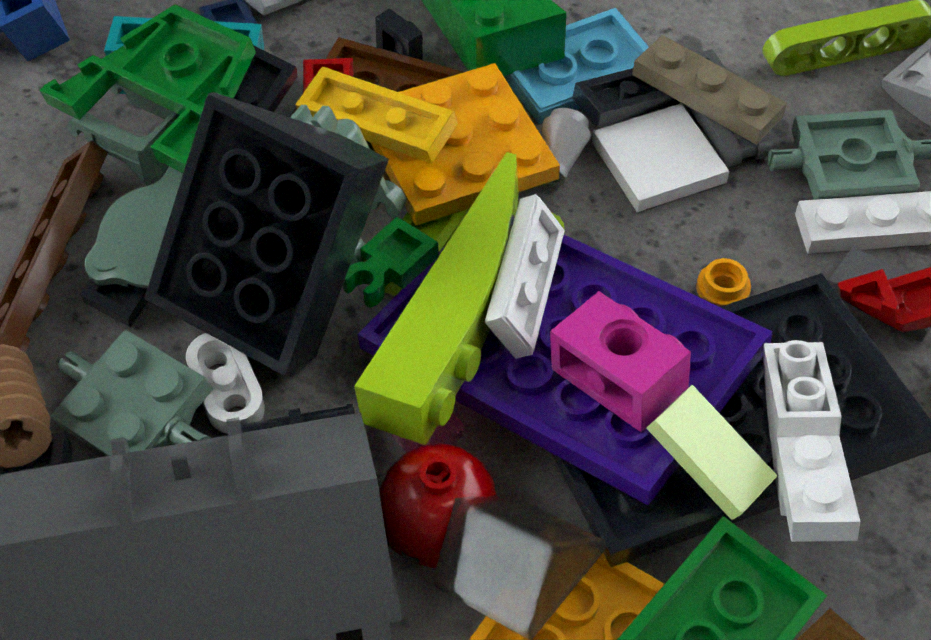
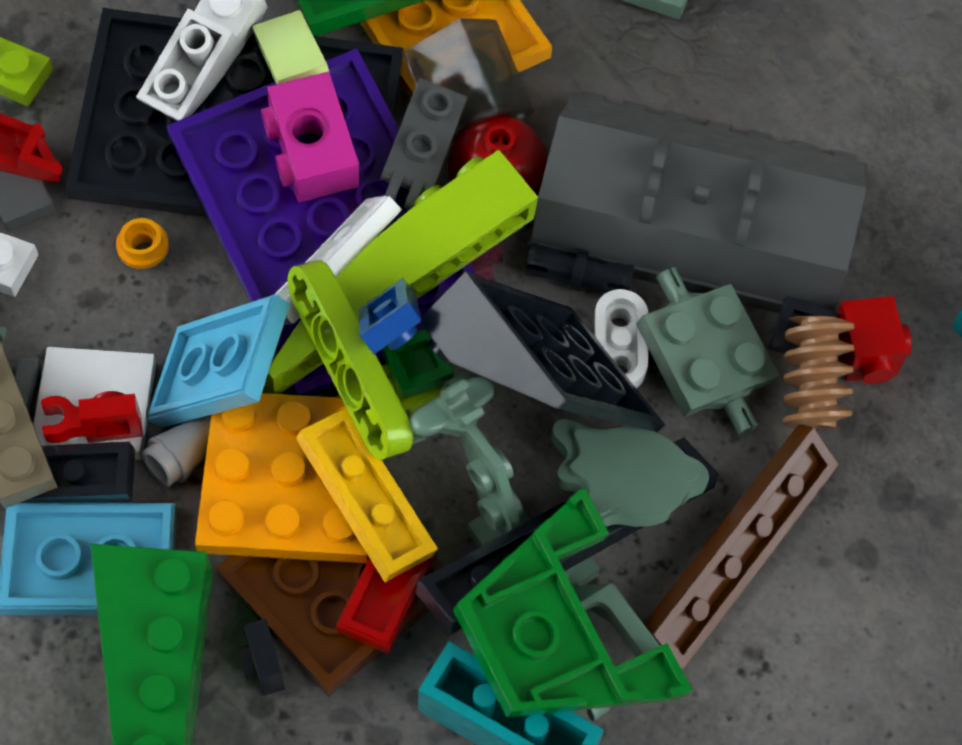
camera: 155 degrees left, 10 degrees up
(424, 180) = (390, 318): none -> blue plate
(449, 163) = (349, 360): none -> lime beam
(515, 430) = (422, 140): none -> dark grey hinge
(568, 173) = (218, 362): none -> medium azure tile
(632, 115) = (101, 418): none -> red plate

